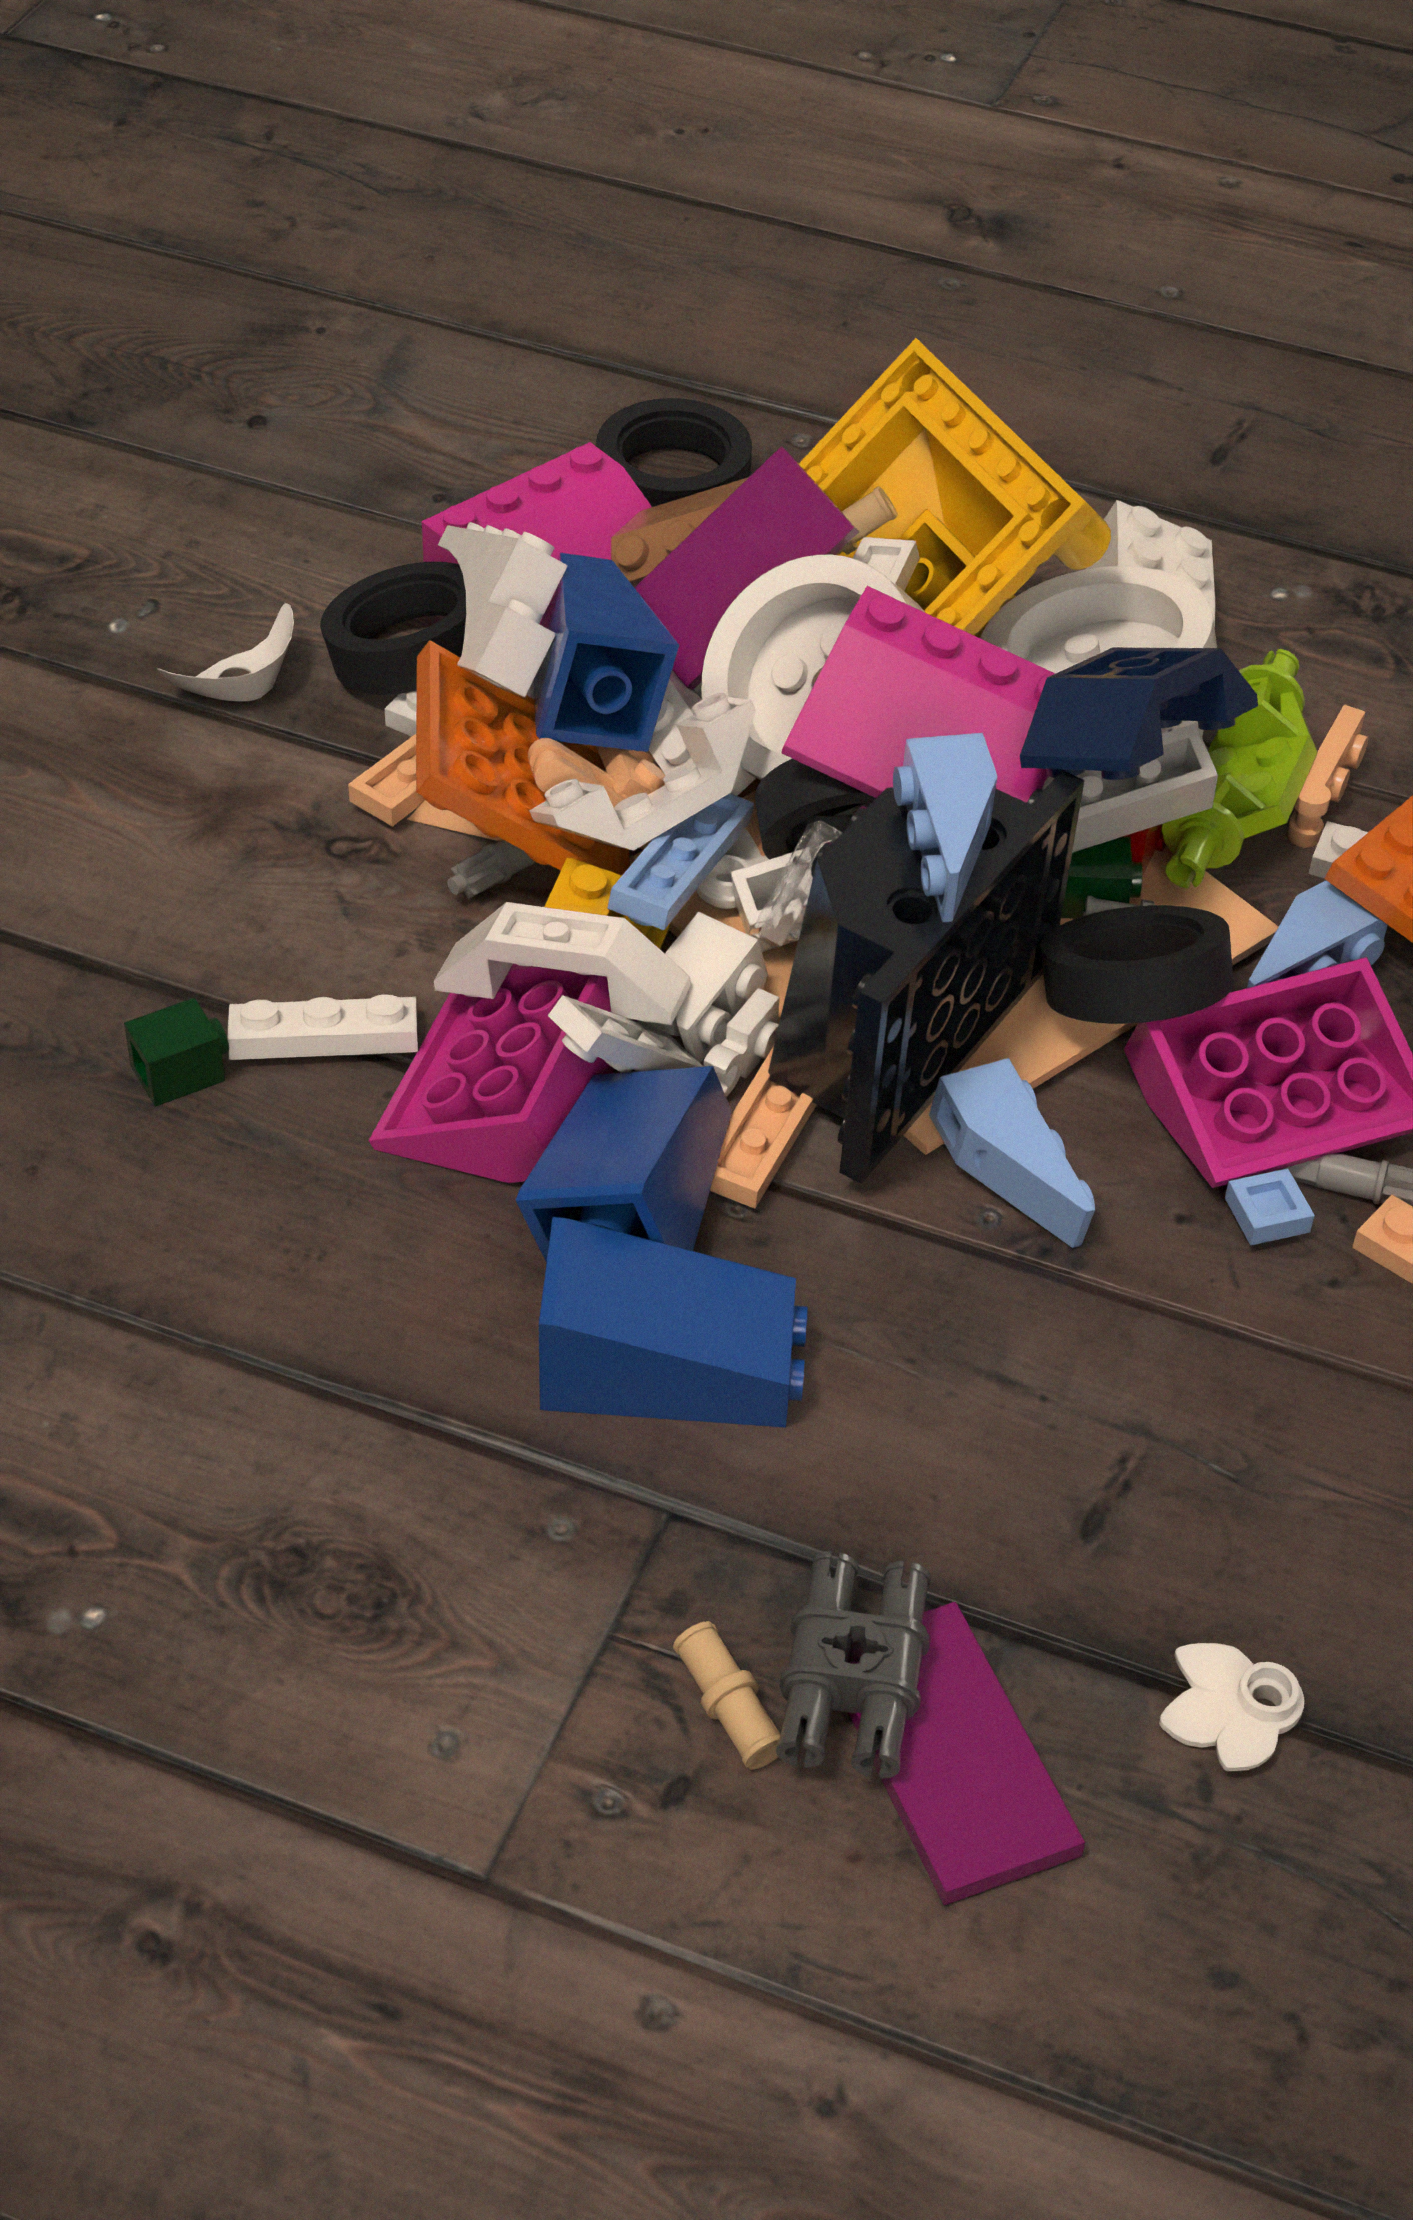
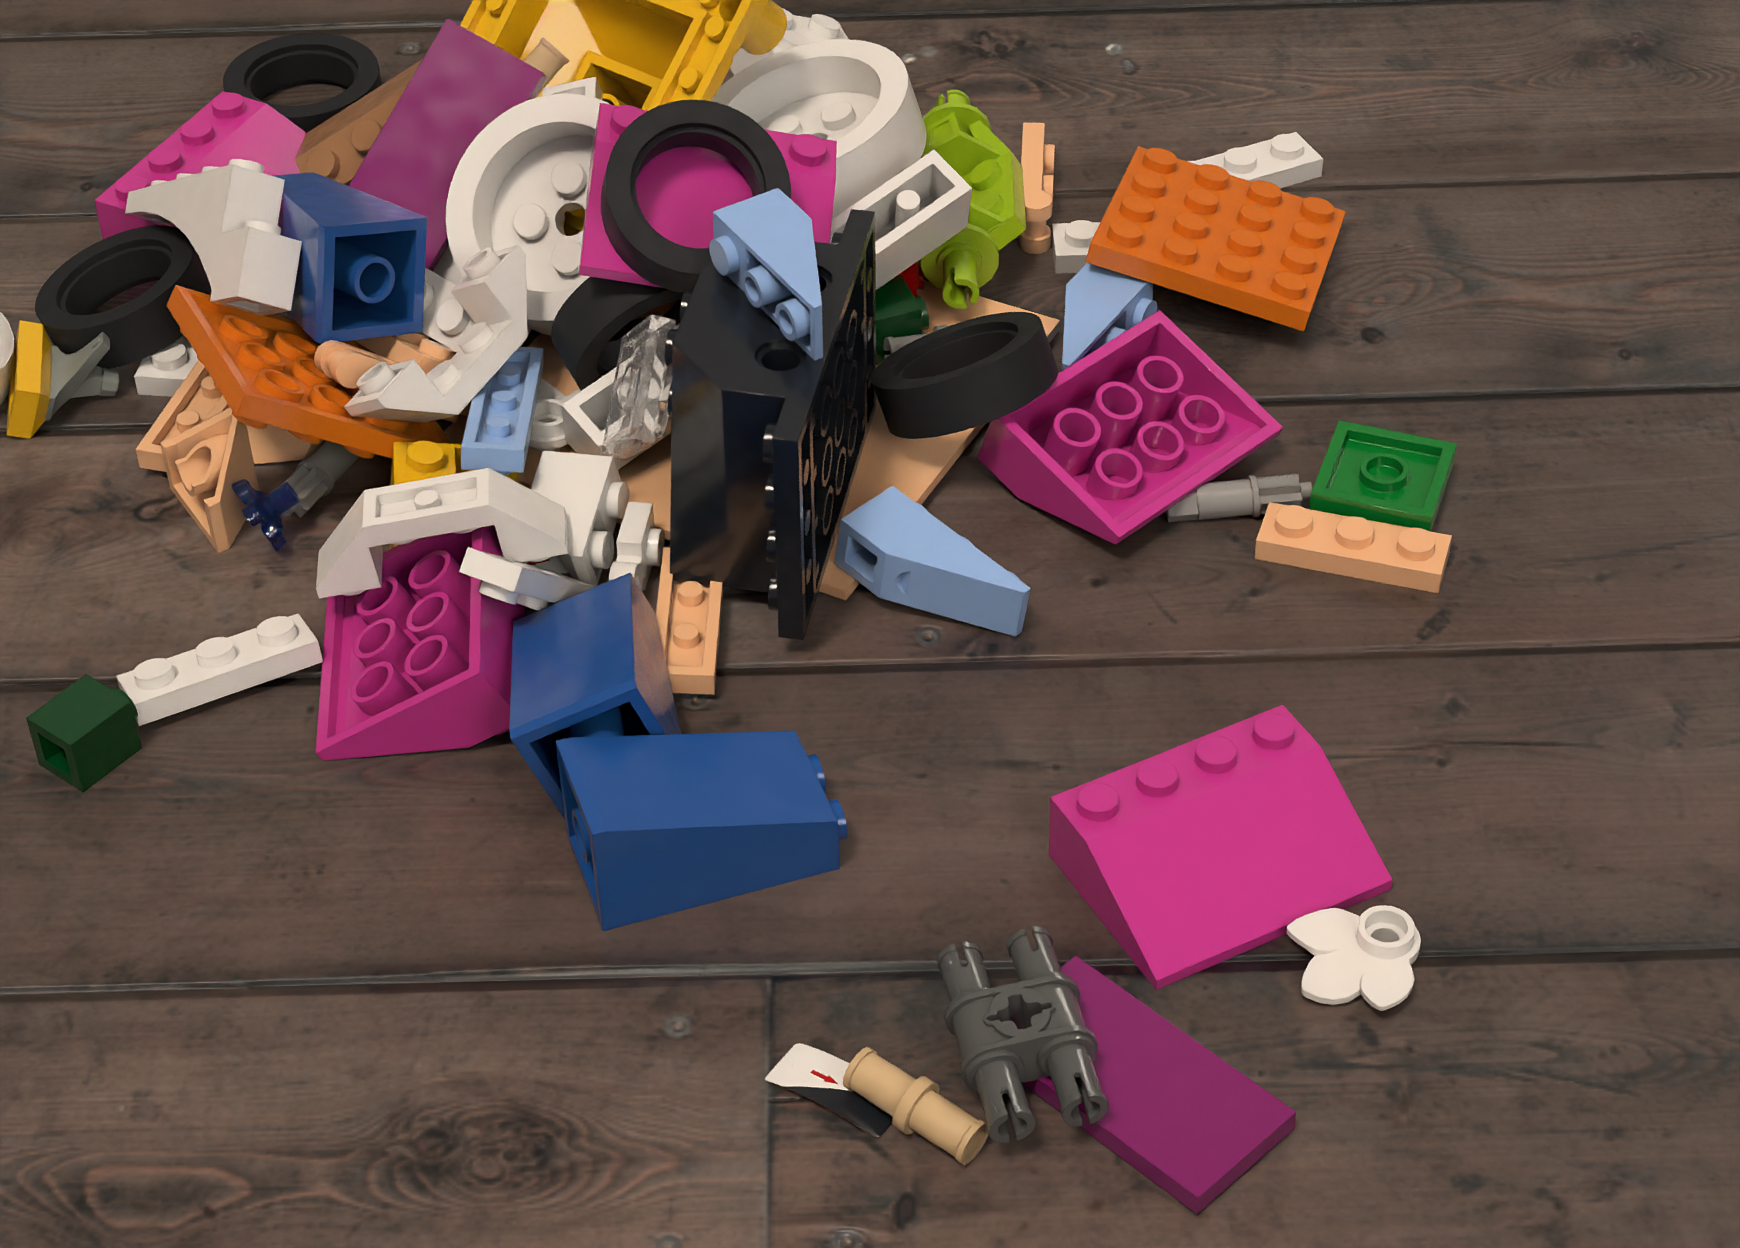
camera: 20 degrees left, 5 degrees down
(310, 685) = (48, 378): none -> piece
(404, 839) = (201, 474): none -> light nougat slope
(432, 884) = (267, 508): none -> clear blue plant
(655, 1625) = (821, 1080): none -> sticker
(898, 636) = (669, 127): none -> black tyre
(1113, 707) = (882, 141): dark blue slope -> none
(1149, 1540) = (1215, 845): none -> dark pink slope
(1269, 1206) = (1171, 544): light blue plate -> none

